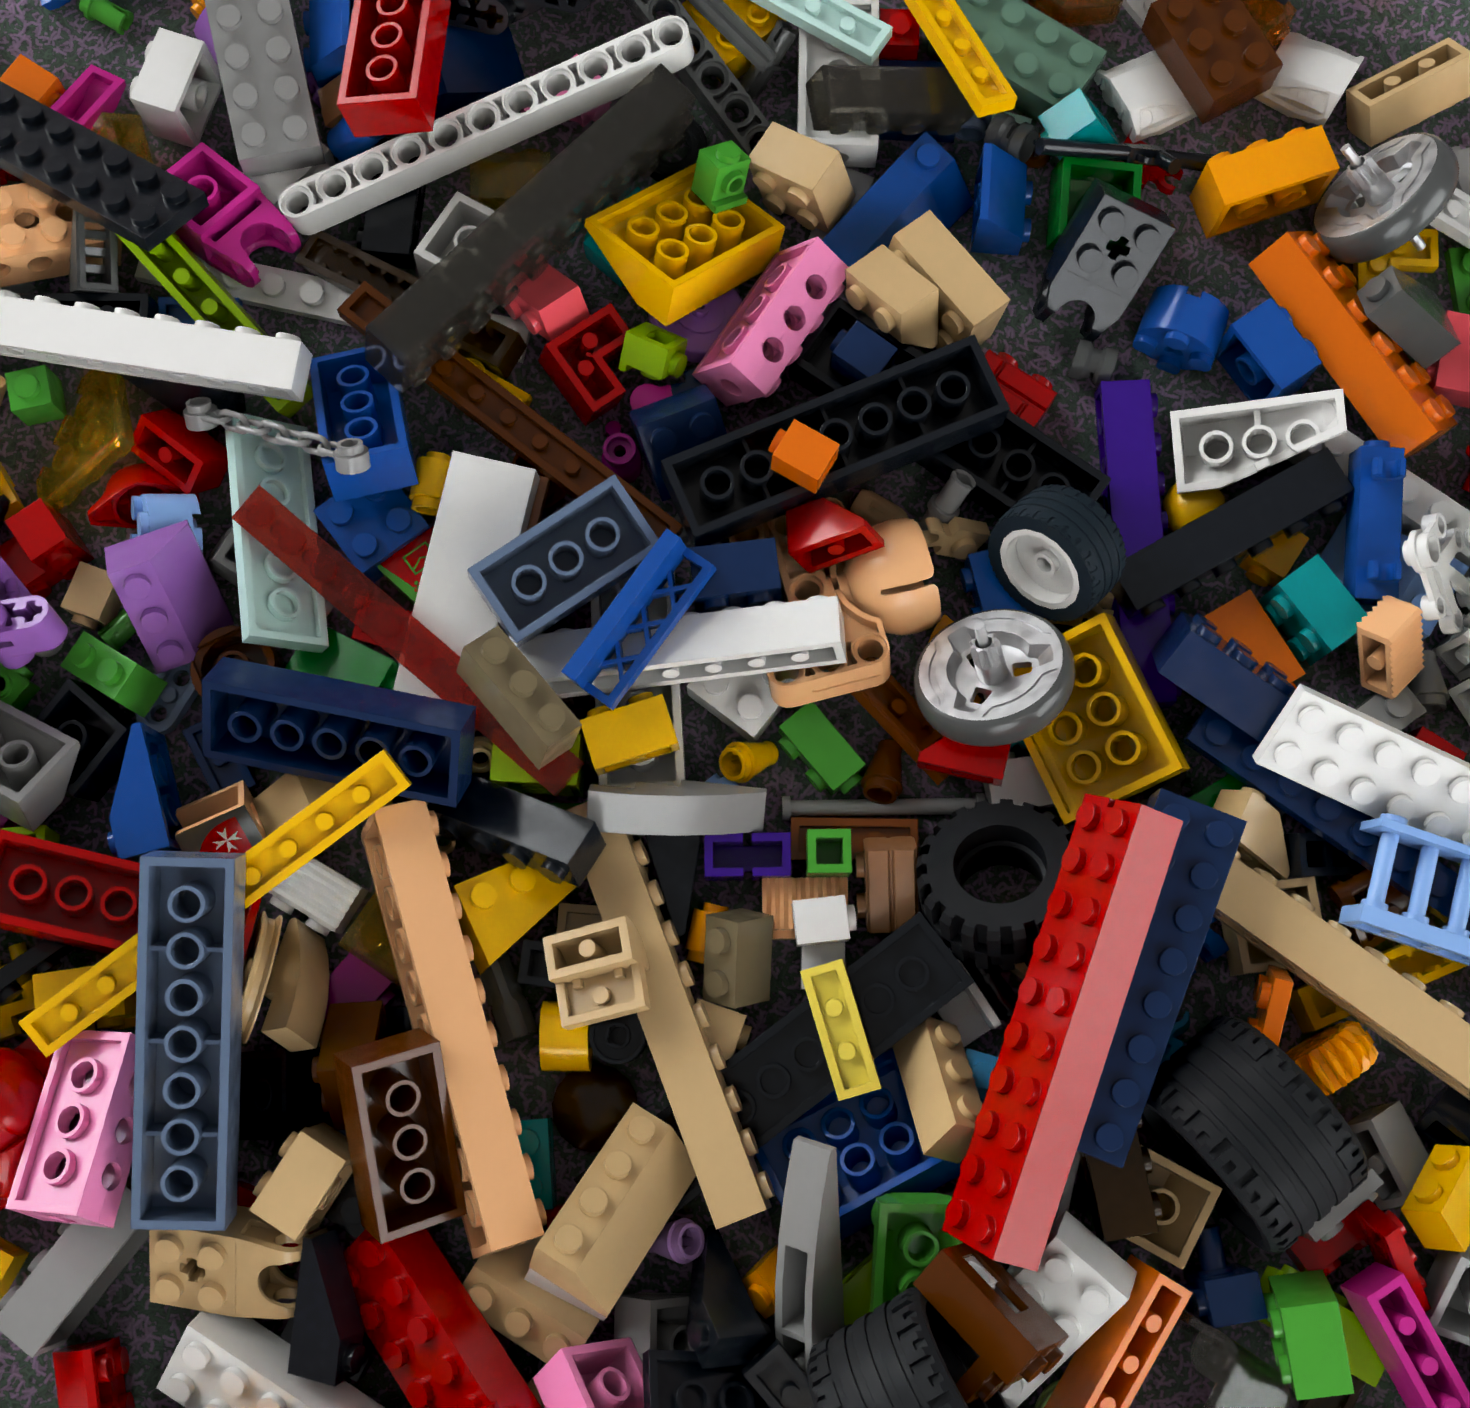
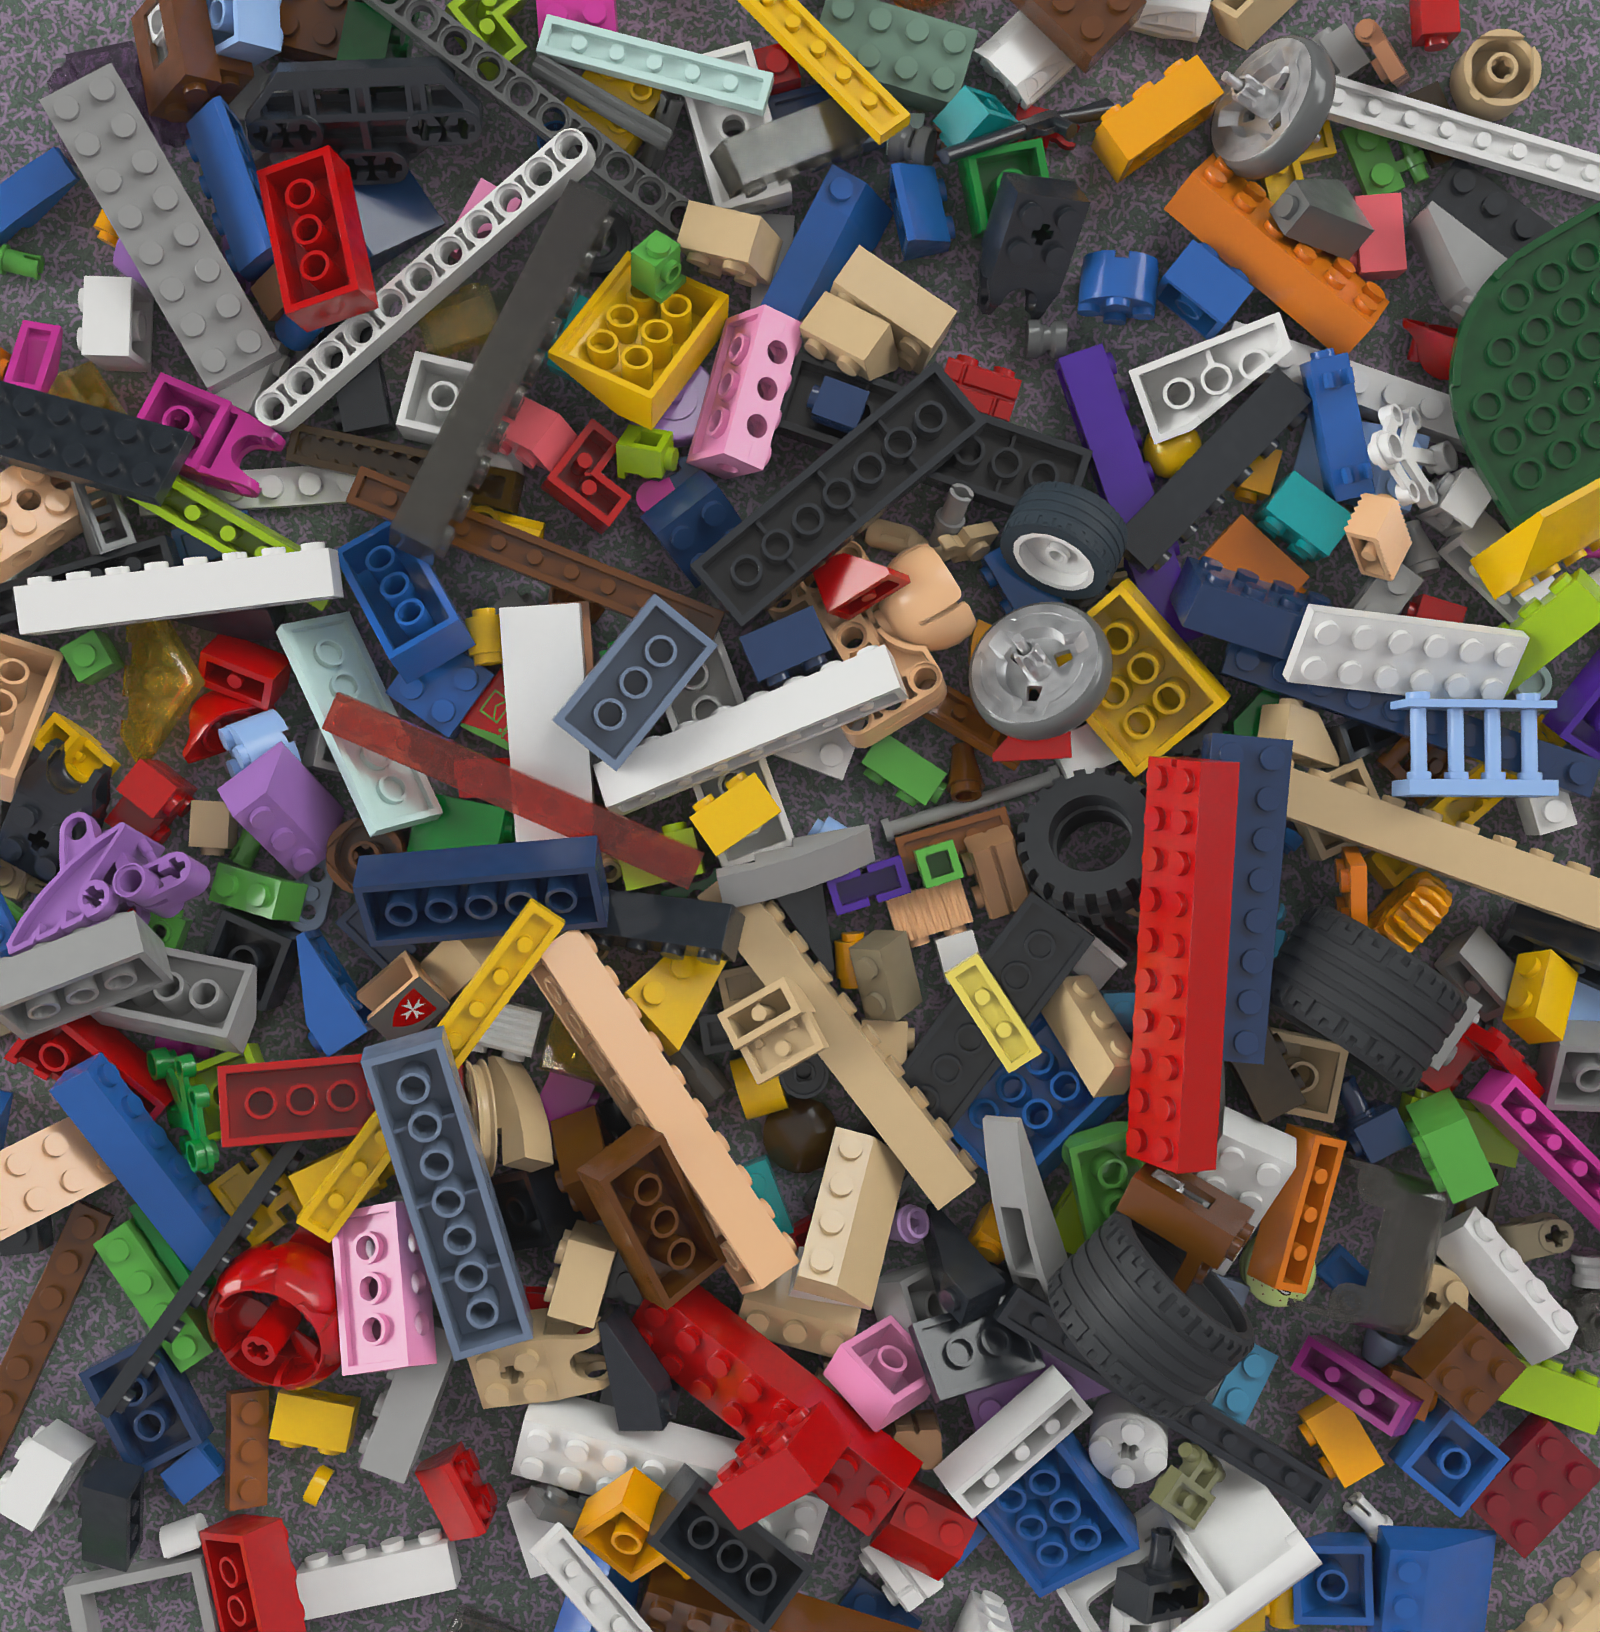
camera: 20 degrees left, 10 degrees up
(349, 456) = (413, 644): light grey piece -> none
(518, 697) = (632, 817): dark tan brick -> none
(621, 453) = (644, 555): magenta piece -> none
(625, 612) = (703, 713): blue fence -> none
(746, 759) = (840, 801): yellow cone -> none
(803, 455) = (816, 525): orange brick -> none
(823, 920) = (950, 923): white brick -> none

